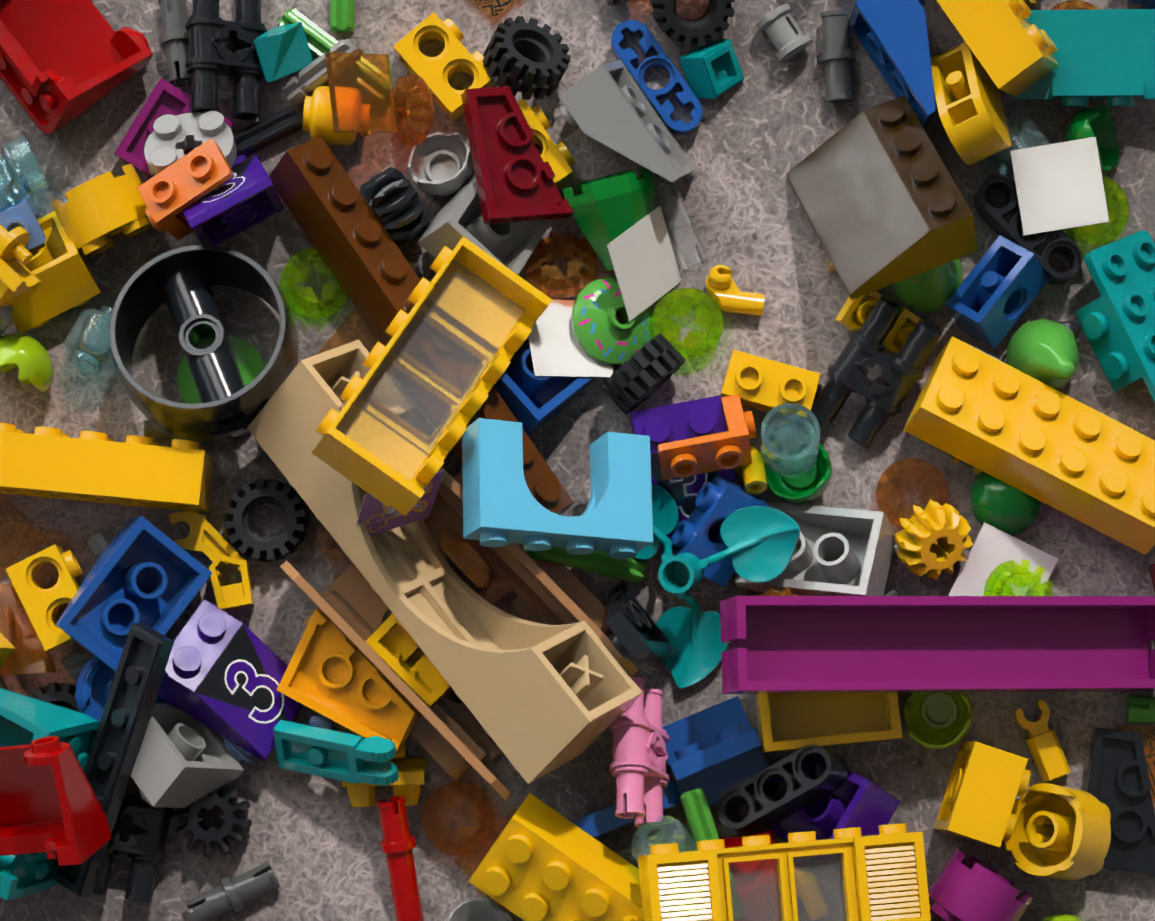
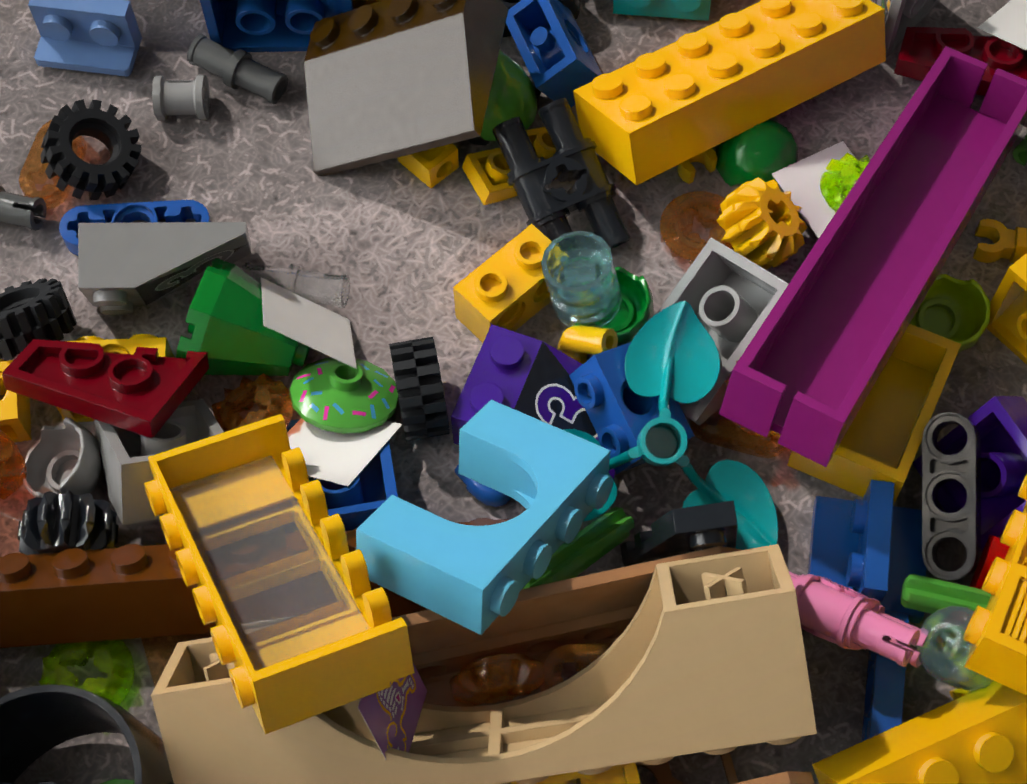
camera: 55 degrees left, 20 degrees down
(707, 316) = (398, 311): clear neon green gear -> none
(711, 451) = (545, 357): orange bracket -> none
(712, 68) = (165, 174): teal slope -> none
(728, 295) = (394, 282): yellow arm -> none
(1045, 351) = (637, 33): bright green hat -> none

